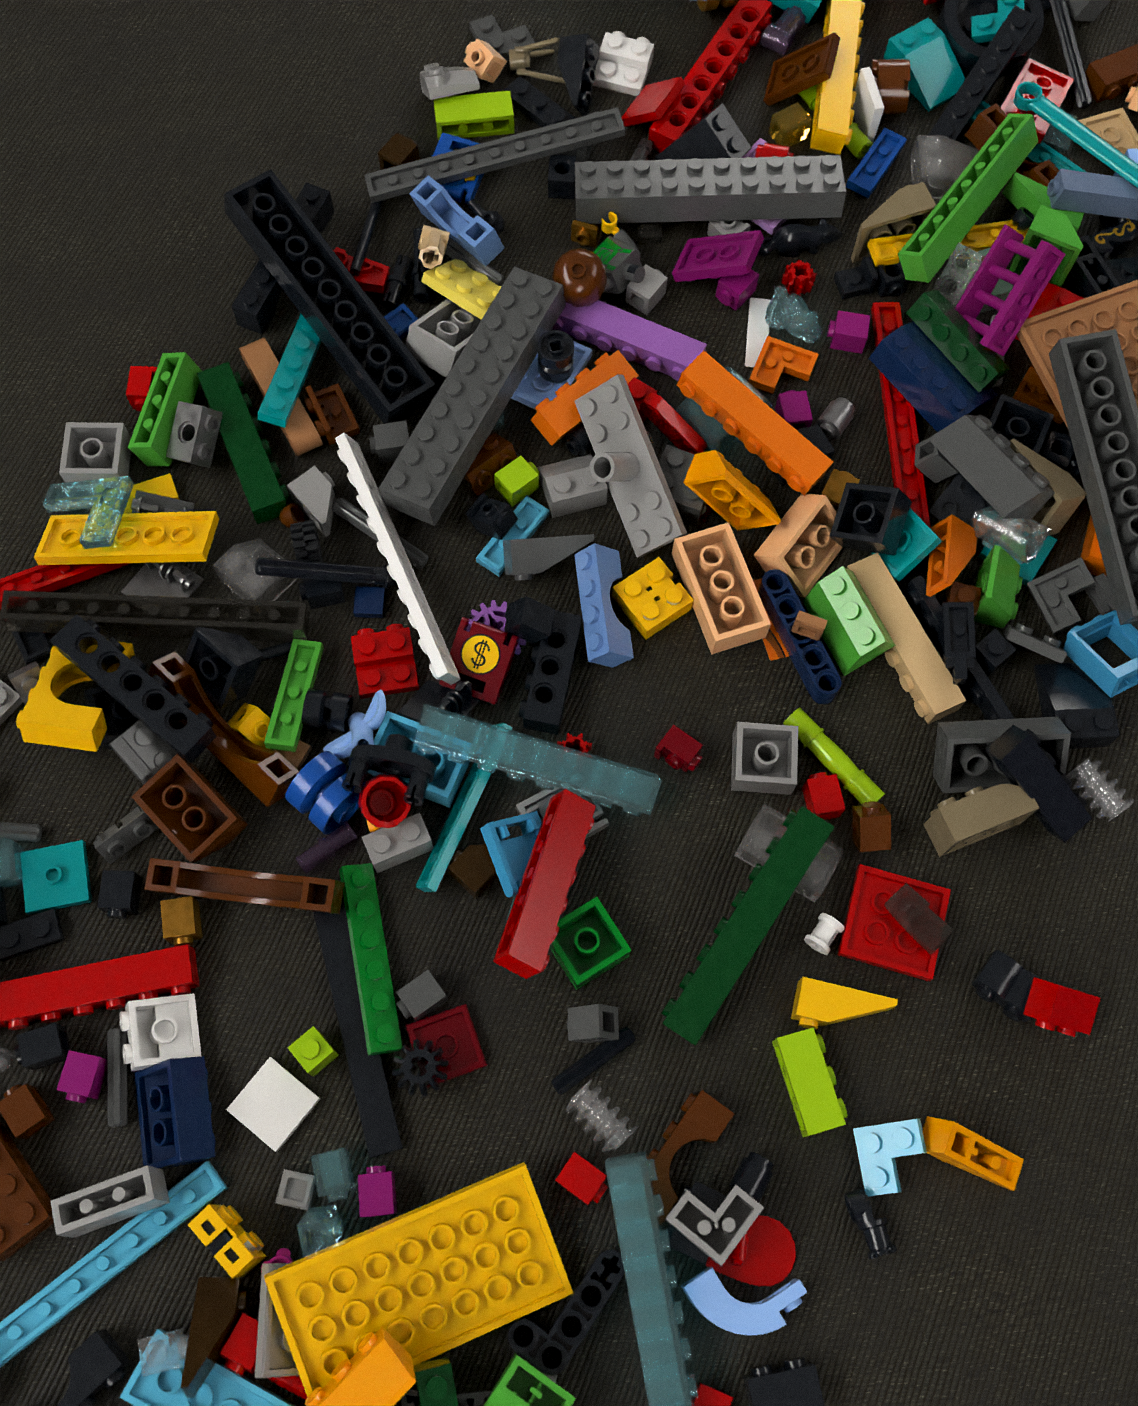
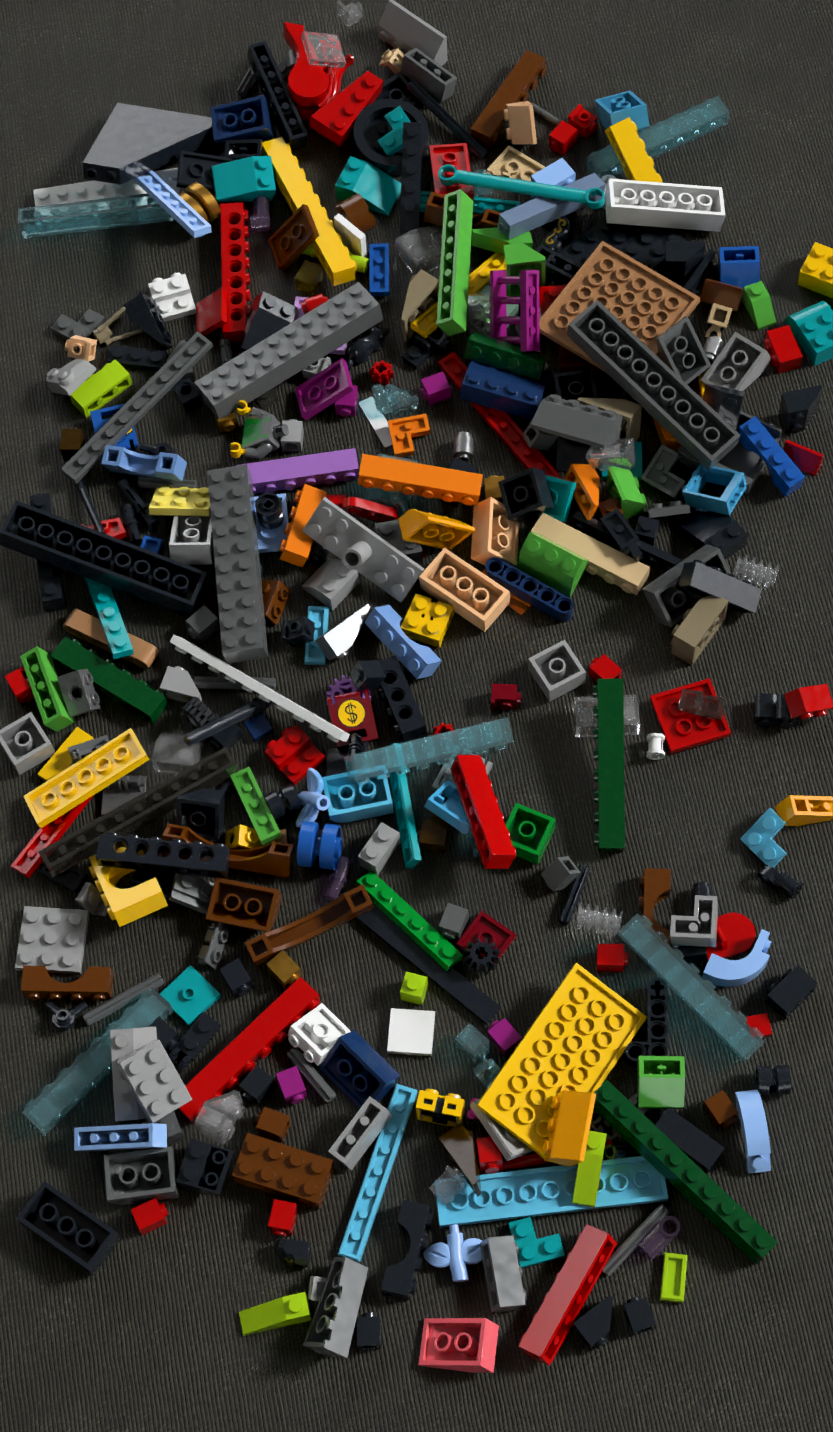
camera: 25 degrees left, 5 degrees down
(107, 502) = (52, 760): clear light blue plate -> none
(291, 514) = (173, 706): reddish brown hinge -> none
(296, 1190) = (457, 1066): light grey tile -> none
(331, 413) = (151, 629): reddish brown bracket -> none
(383, 802) = (358, 826): red piece -> none
(392, 759) = (347, 799): black connector -> none
(432, 246) = (141, 487): tan piece -> none
(517, 480) = (296, 600): lime brick -> none
(581, 276) = (251, 450): reddish brown cylinder -> none
(794, 408) = (435, 455): magenta brick -> none
(809, 625) = (532, 578): medium nougat tile -> none
(809, 1082) = (700, 829): lime brick -> none
(829, 1003) = (683, 781): yellow slope -> none
(834, 758) = (598, 647): lime piece -> none
(871, 827) = (643, 671): reddish brown brick -> none
(1023, 219) = (495, 254): black hinge -> none

